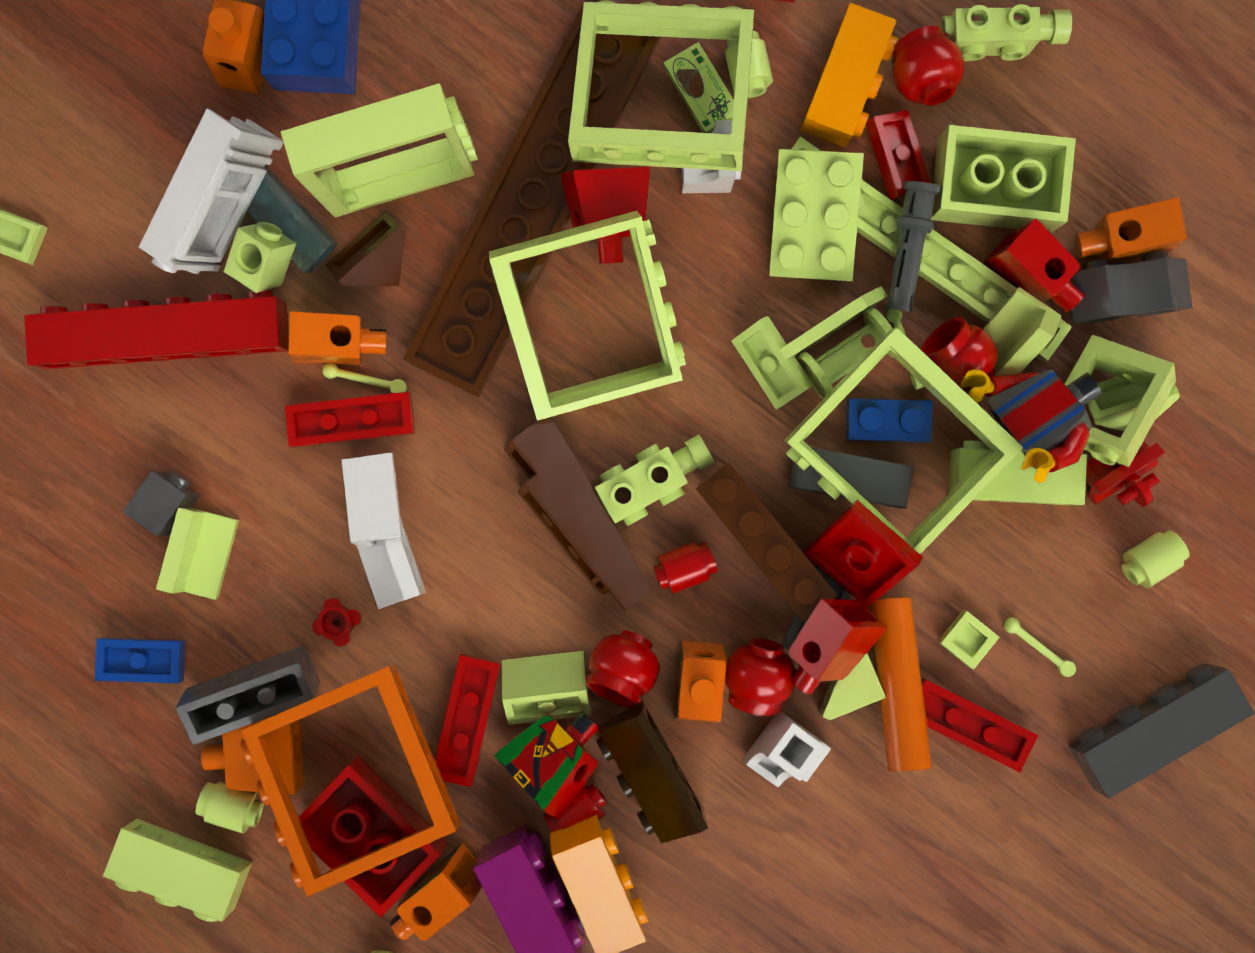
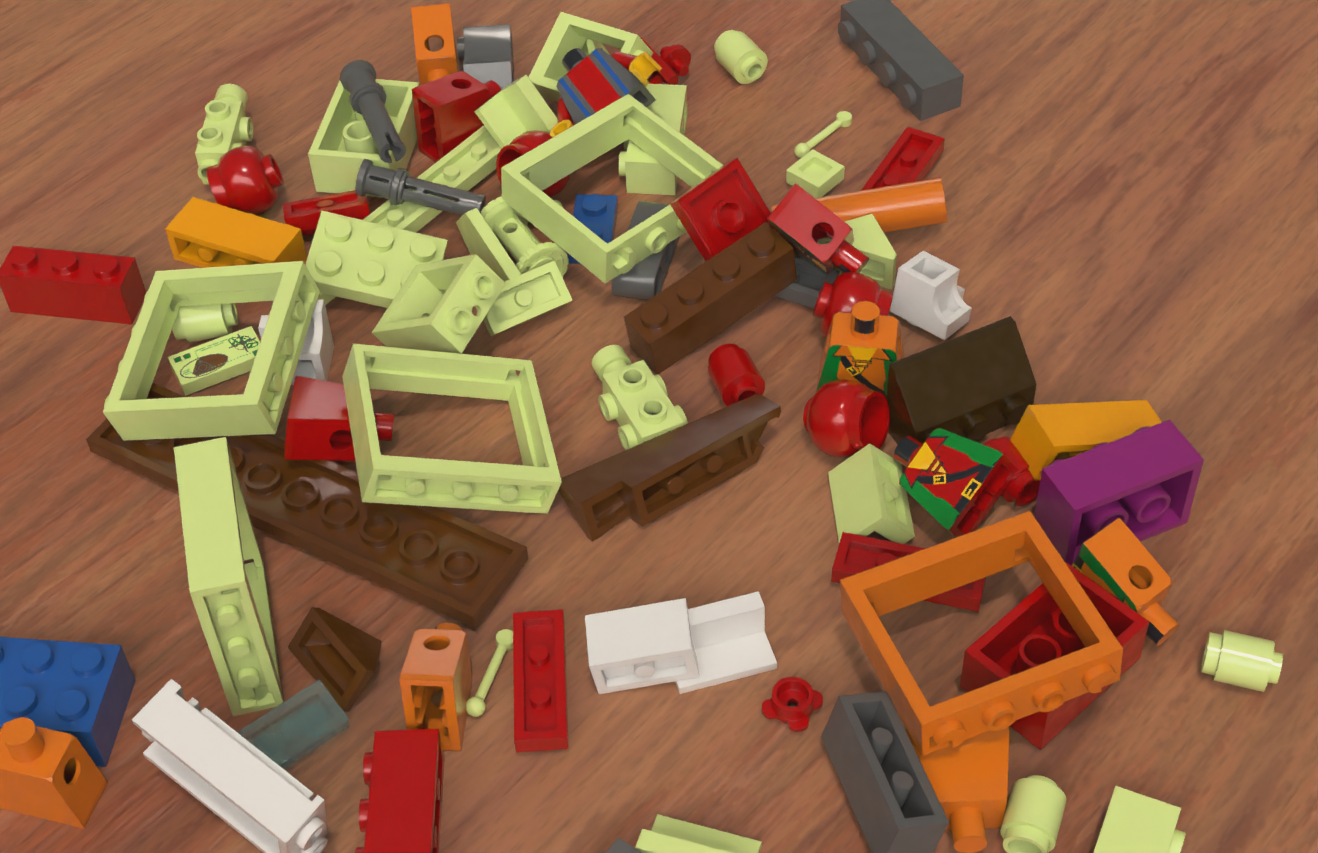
camera: 85 degrees left, 40 degrees down
(260, 256) = (343, 753): yellowish green brick -> none
(744, 261) = (437, 305): none -> yellowish green window
(1020, 175) = (369, 100): none -> dark grey pin

